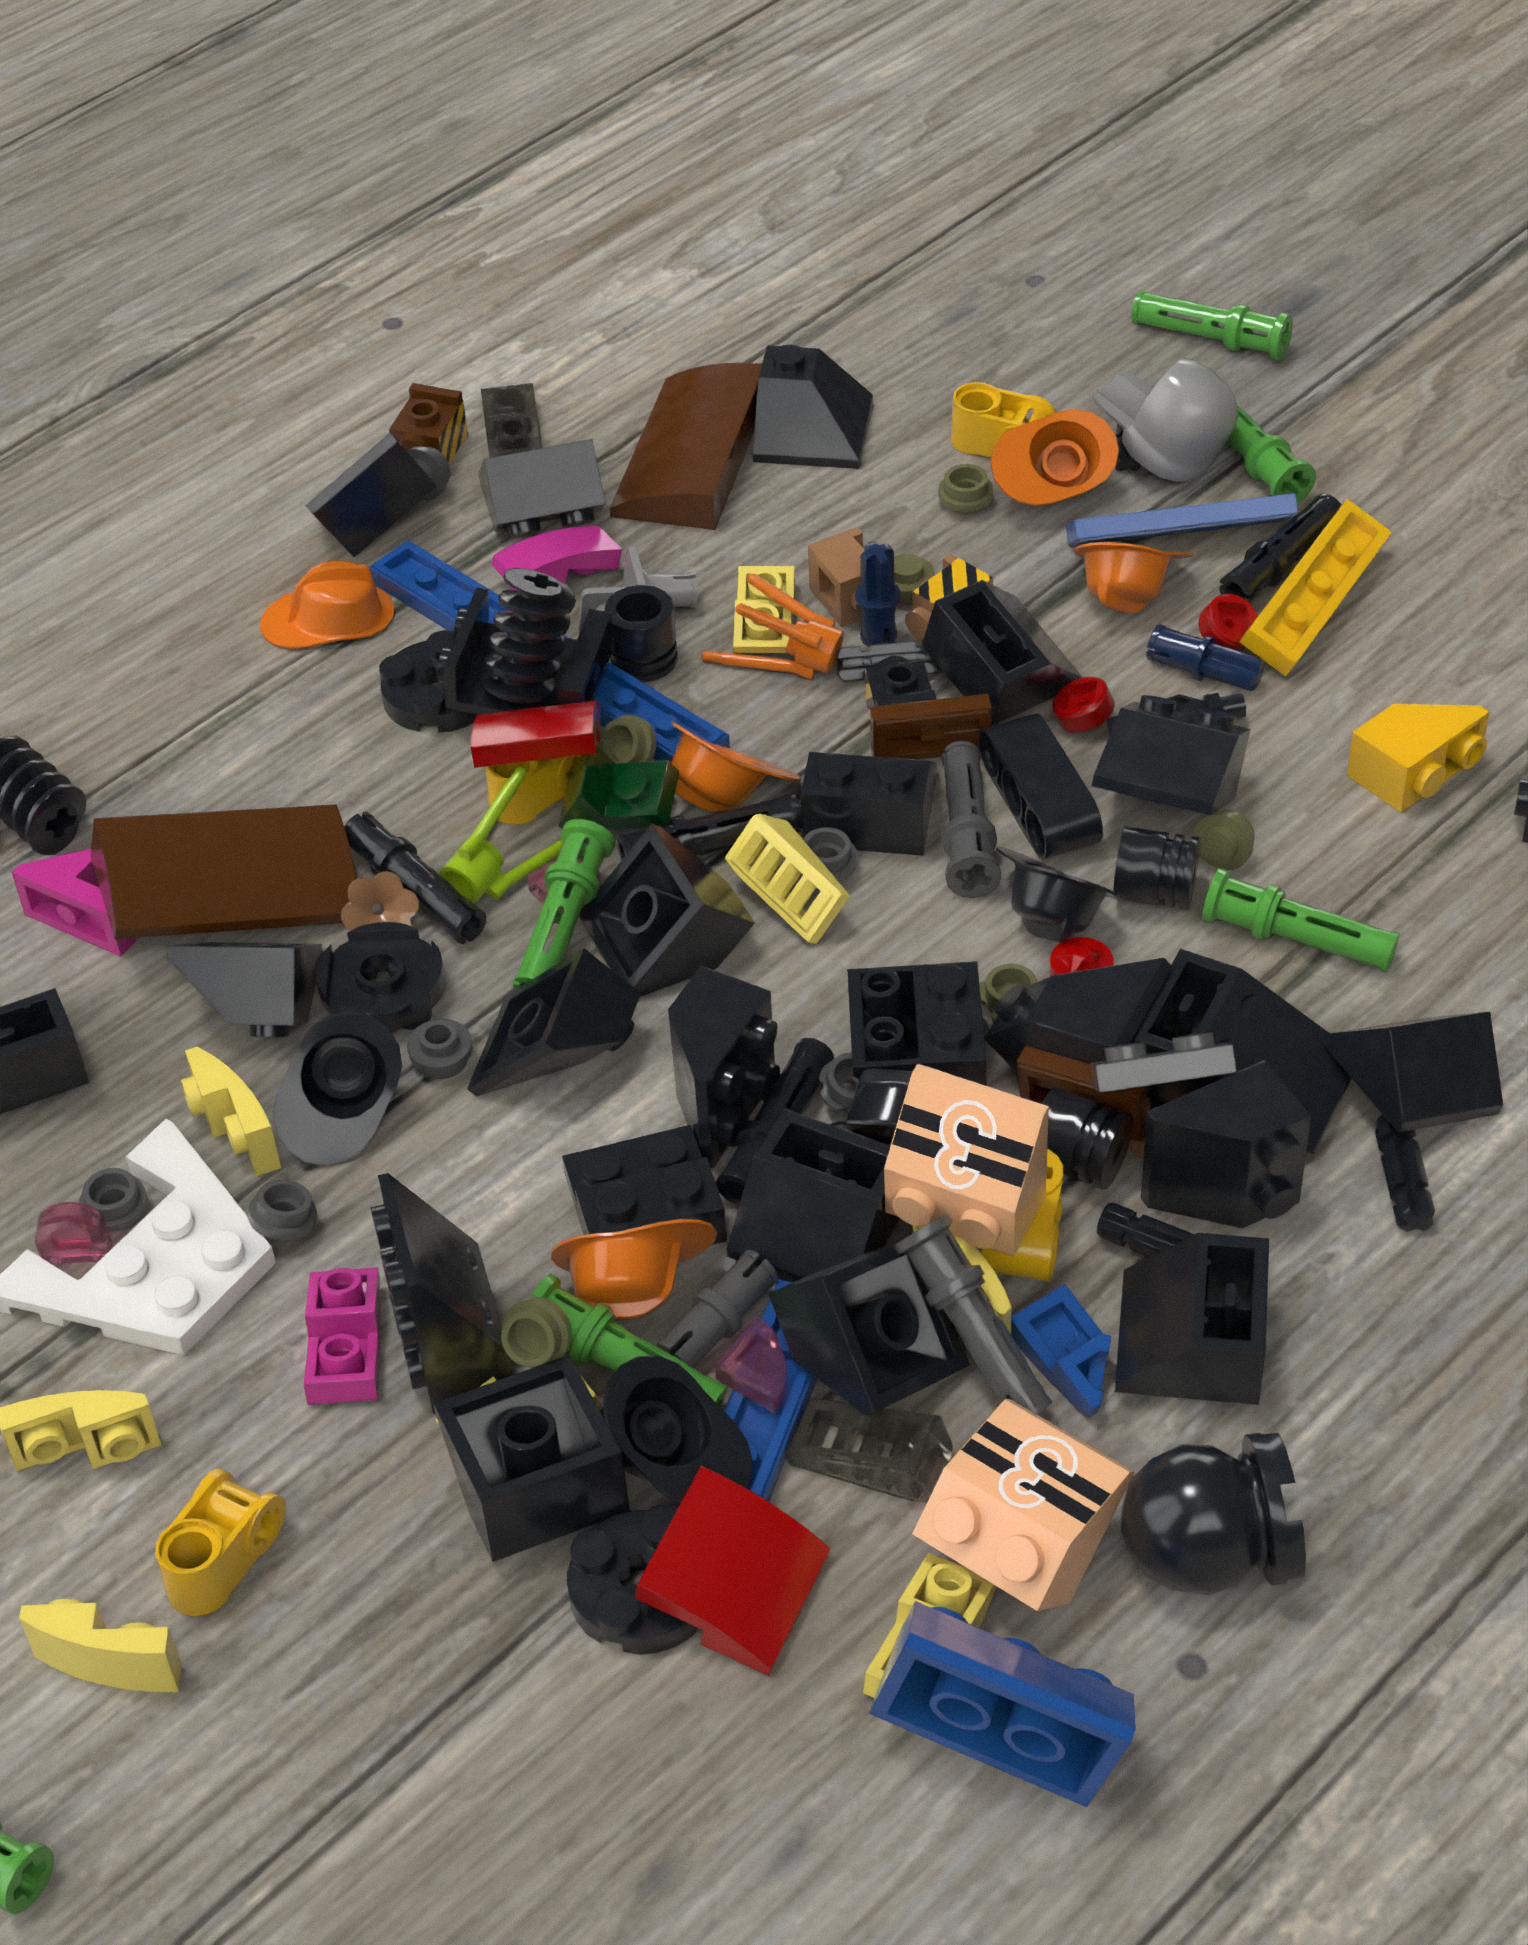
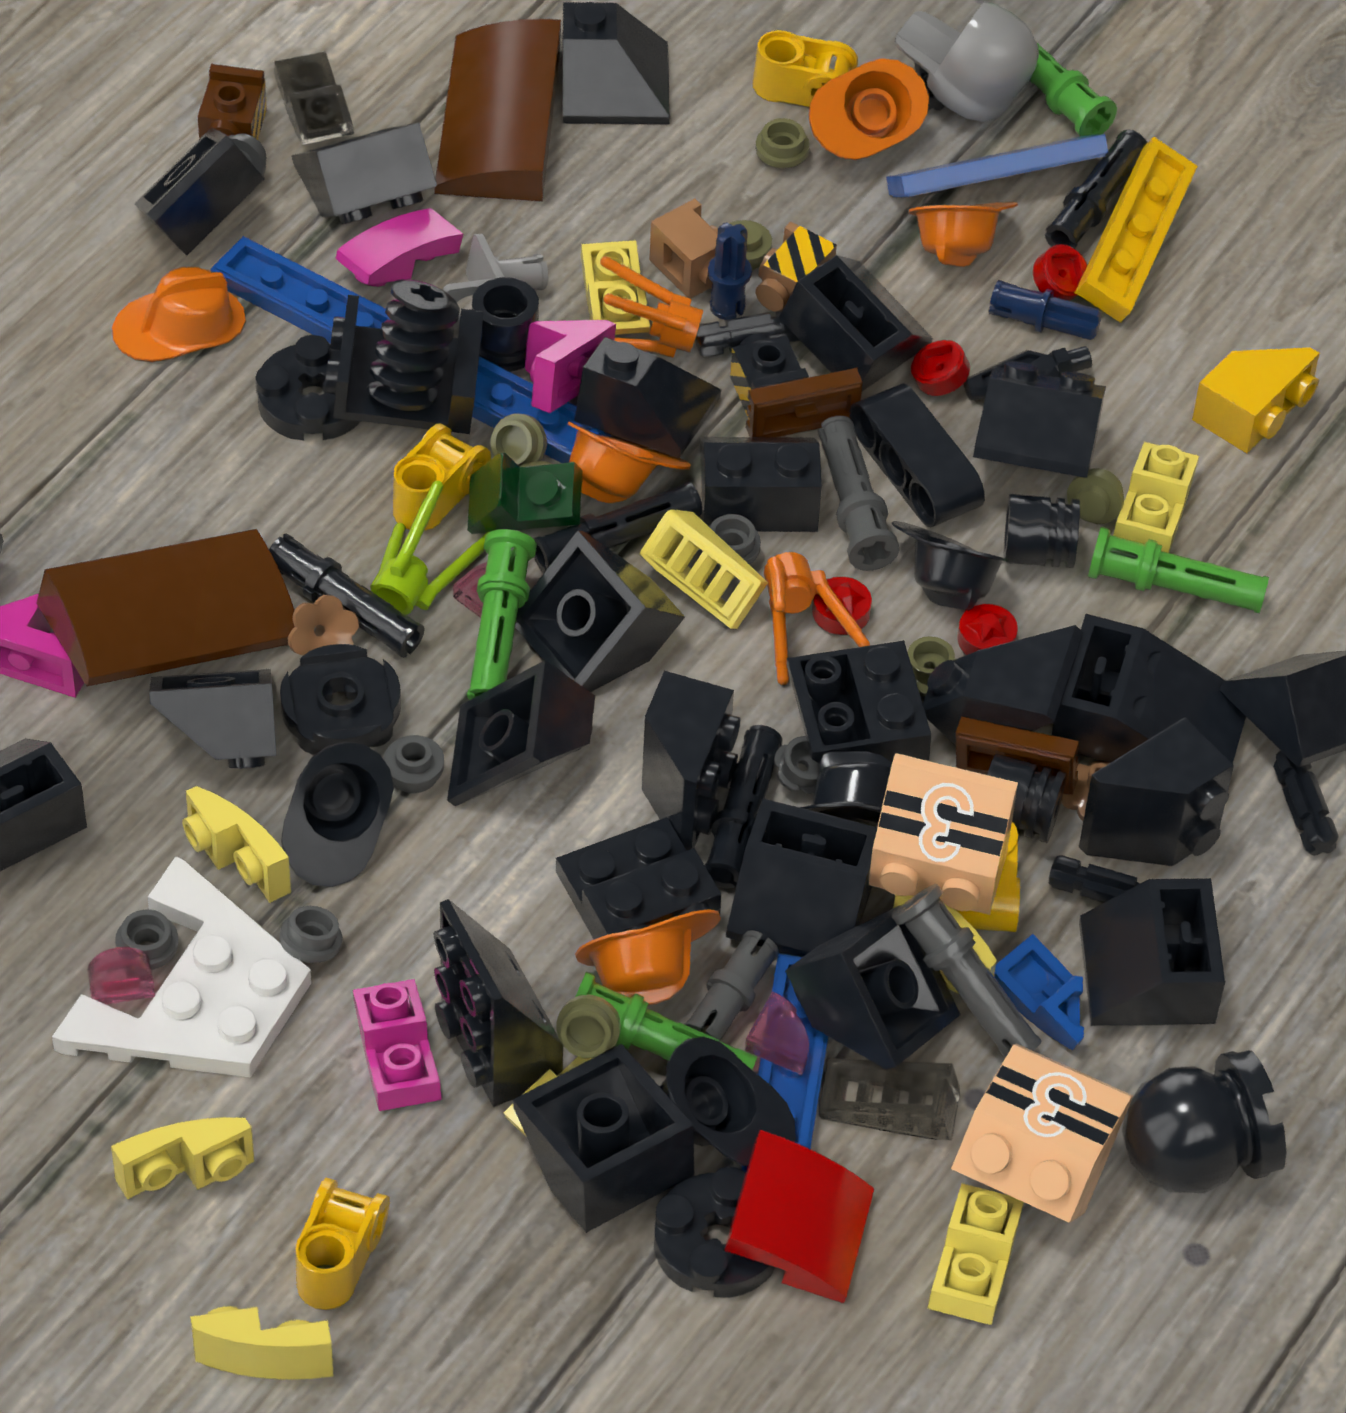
camera: 15 degrees left, 5 degrees up
(535, 733) = (444, 444): red slope -> none
(696, 669) = (557, 357): none -> dark pink slope
(762, 708) = (643, 398): none -> black slope
(875, 904) = (791, 591): none -> orange plant
(930, 928) = (852, 595): none -> red tile
(1005, 1704) = (1058, 1303): blue slope -> none
(1192, 1058) = (1068, 733): plate -> none
(1293, 843) = (1156, 495): none -> light yellow slope

